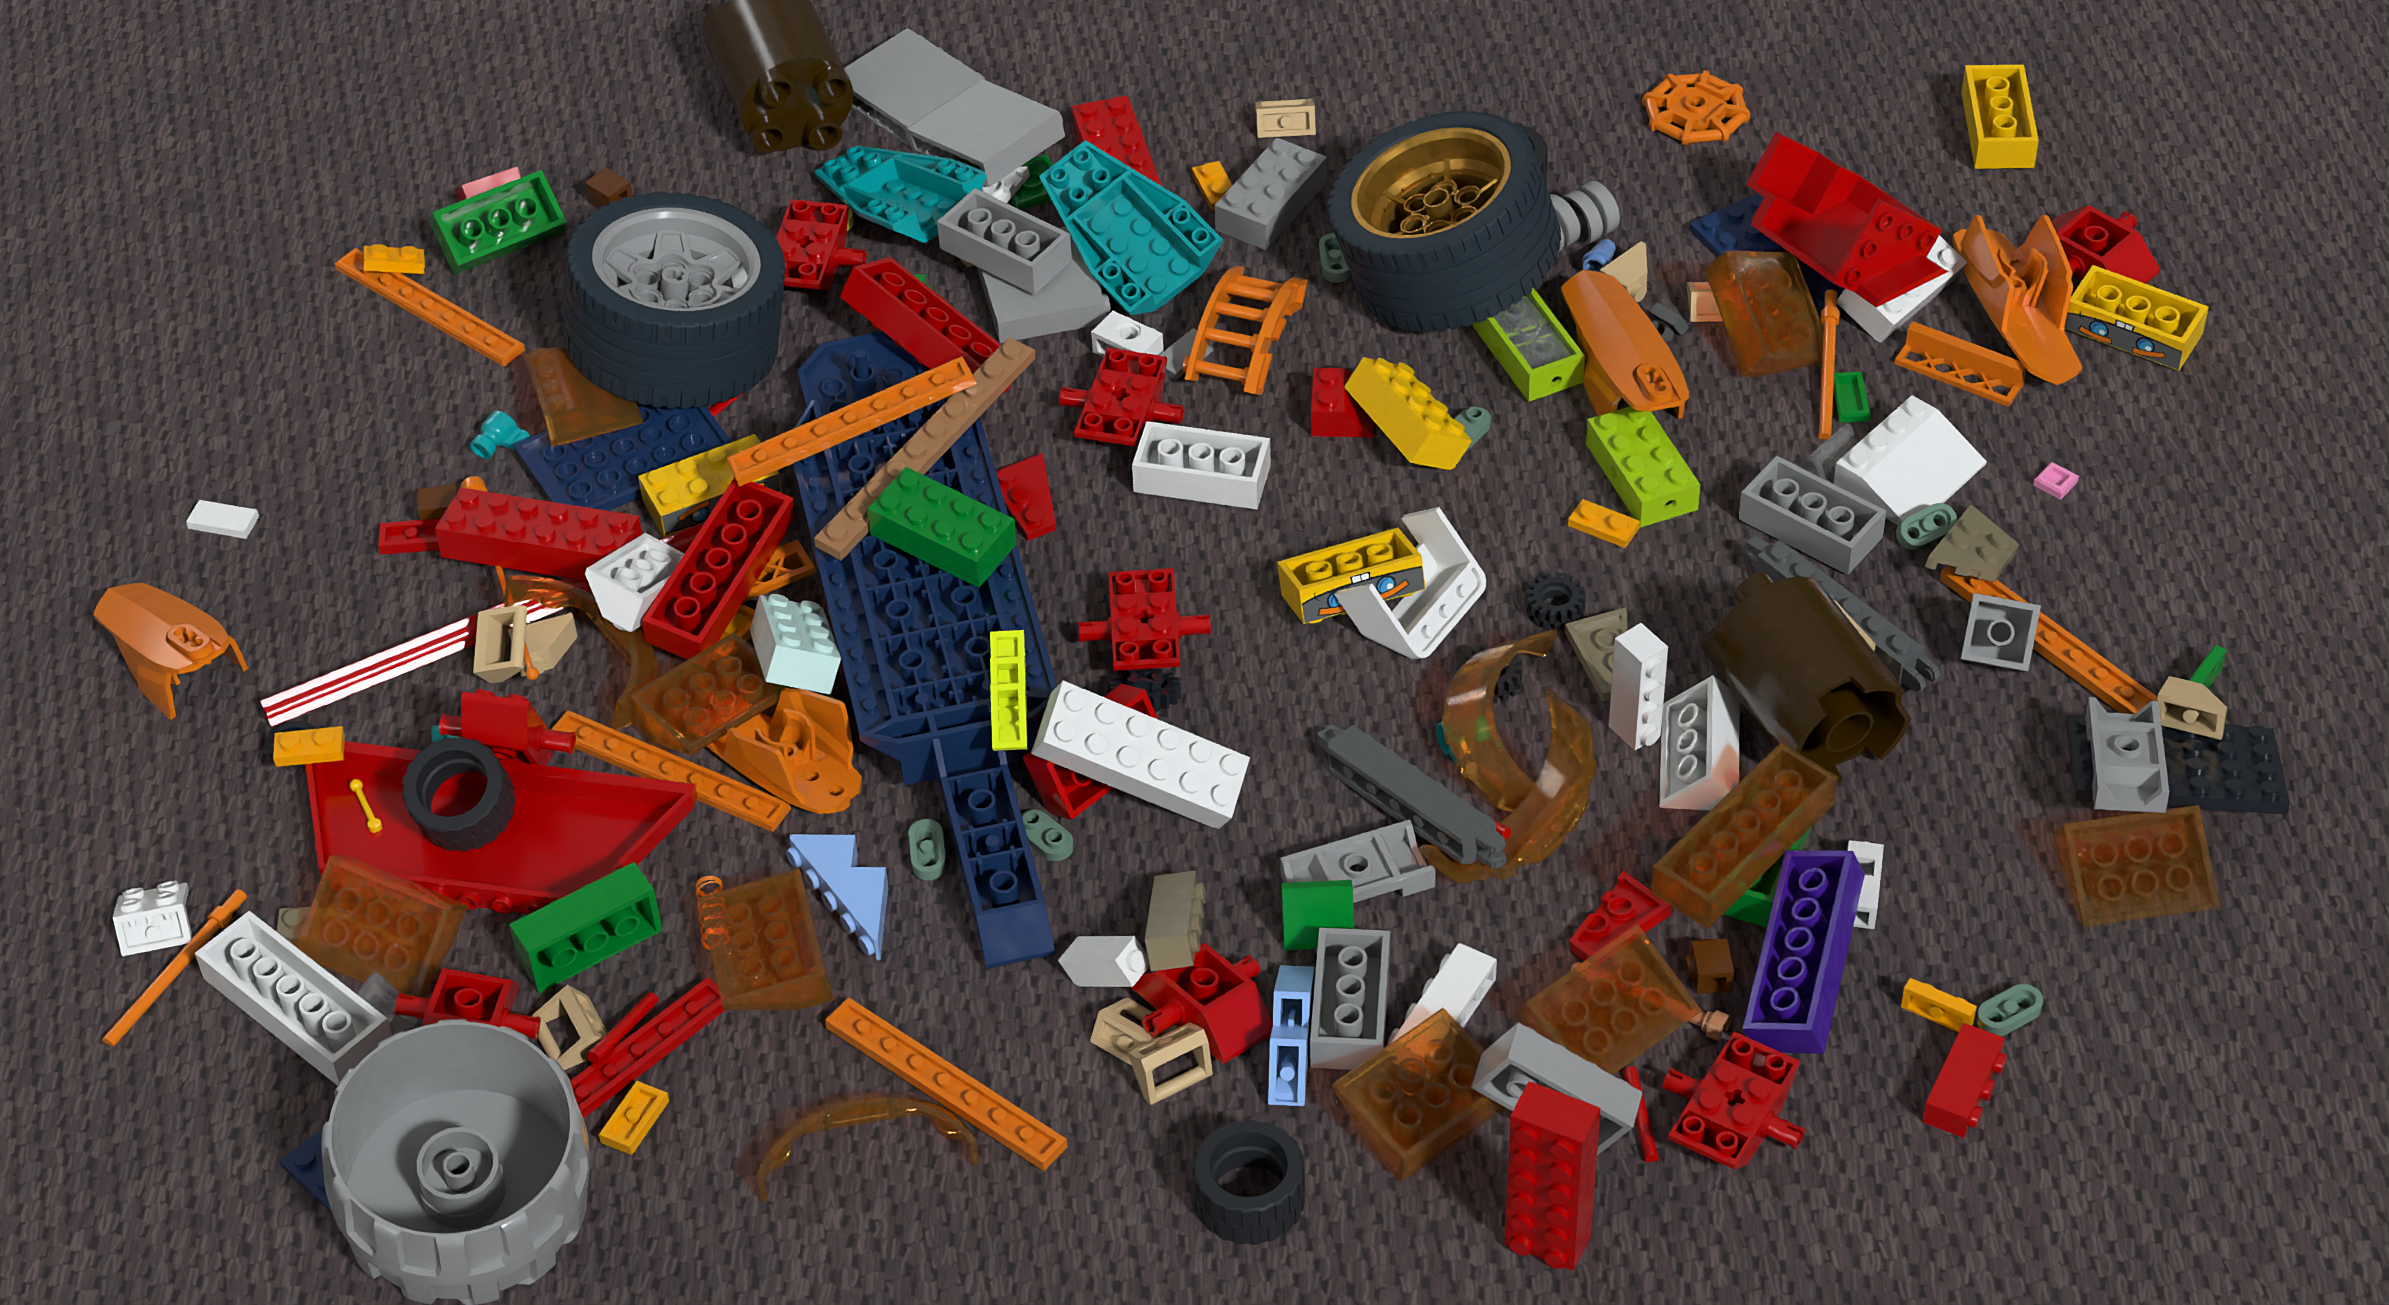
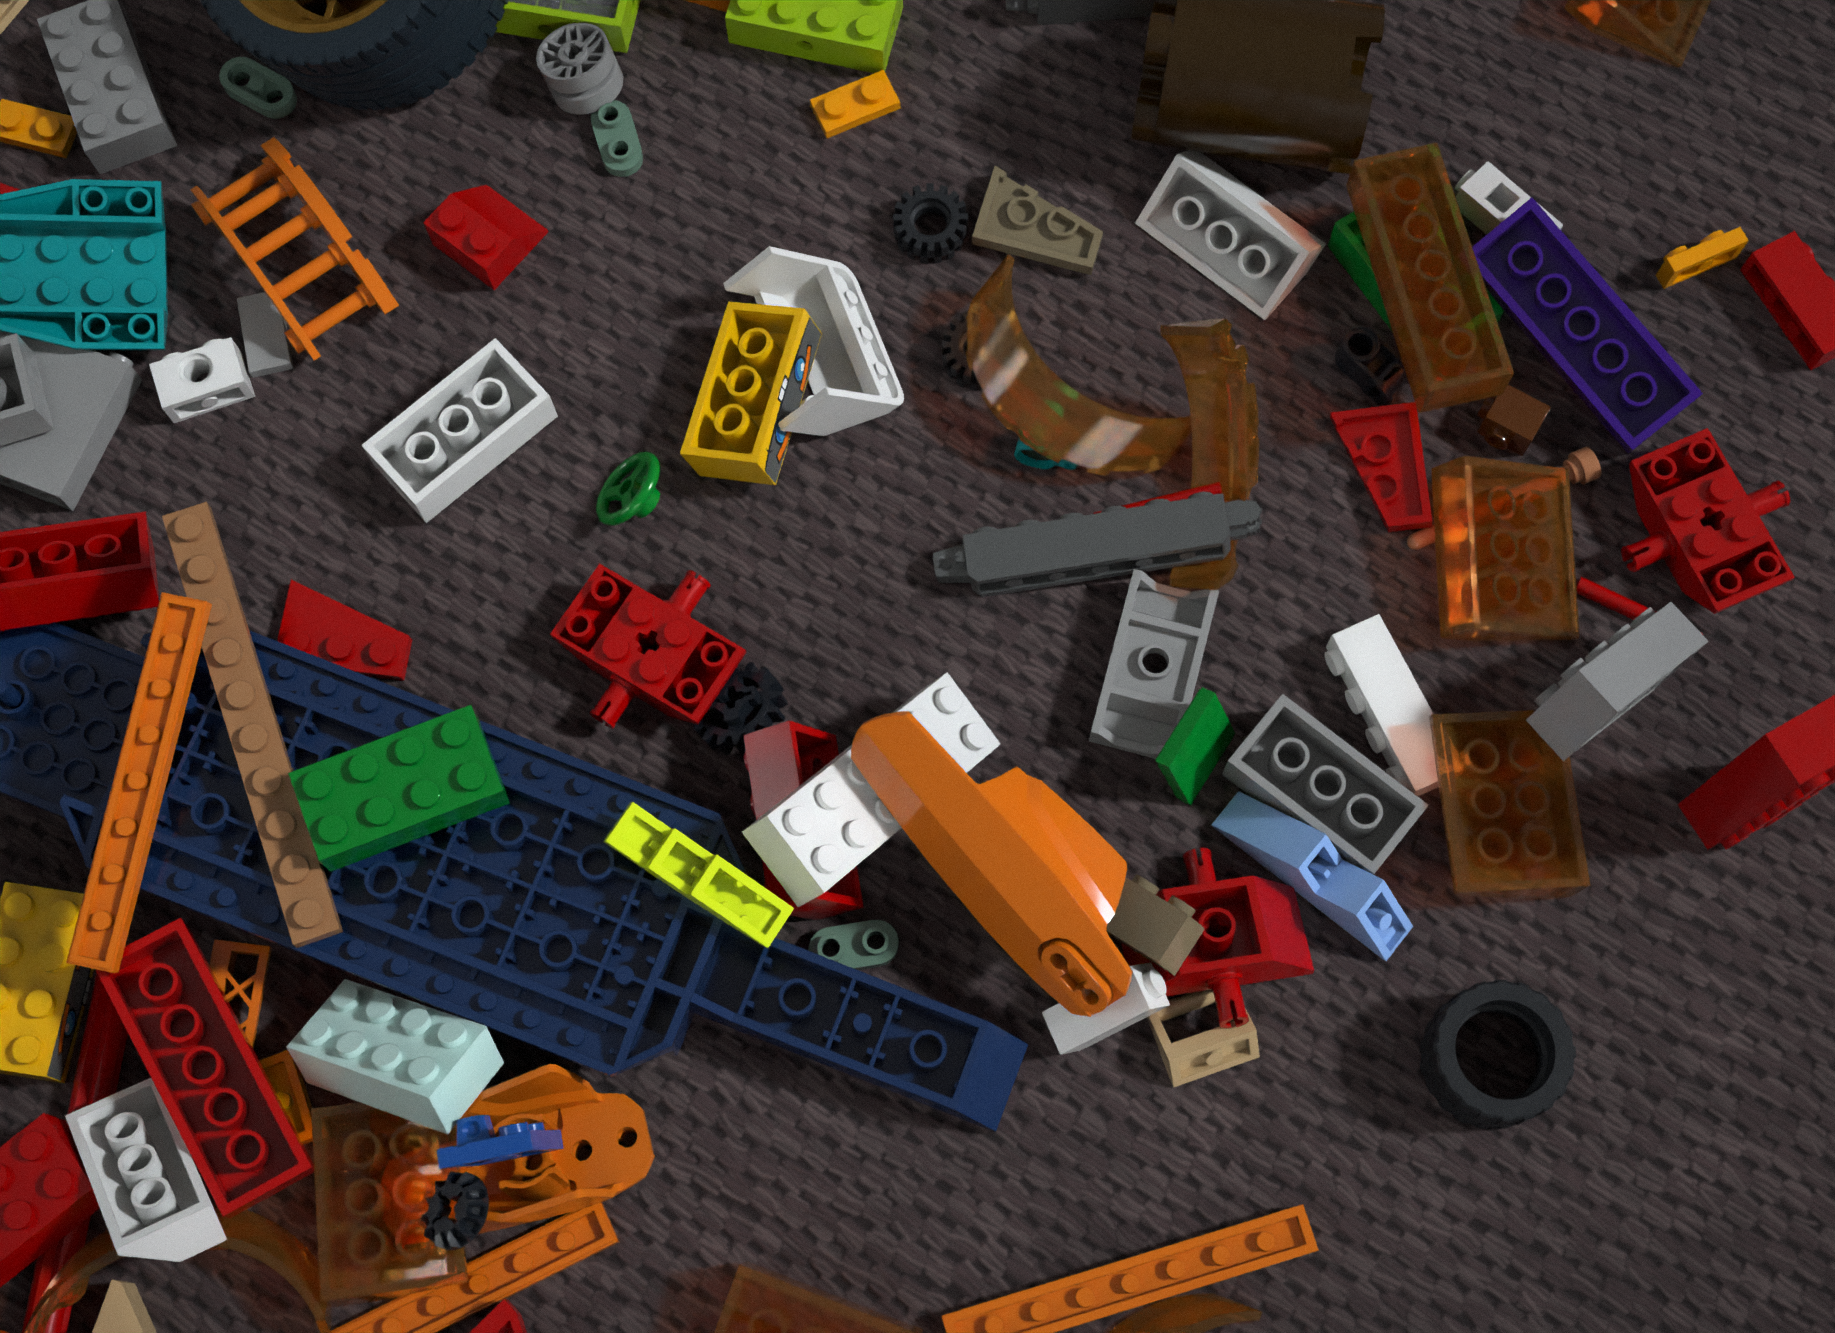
camera: 55 degrees left, 25 degrees up
(725, 715) = (470, 1211): none -> black gear
(777, 708) = (480, 1146): none -> blue hinge
(852, 891) = (794, 1212): light blue slope -> none
(927, 851) = (785, 1088): sand green plate -> none
(1122, 398) = (273, 420): red slope -> none
(1152, 830) = (1011, 857): none -> orange piece
(1164, 1049) = (1278, 1026): tan tile -> none
(1238, 565) = (635, 492): none -> green piece
(1408, 413) = (567, 178): yellow brick -> none
(1488, 379) = (579, 68): none -> light grey wheel
(1638, 686) = (1158, 231): white brick -> none
(2006, 1009) = (1743, 204): sand green plate -> none

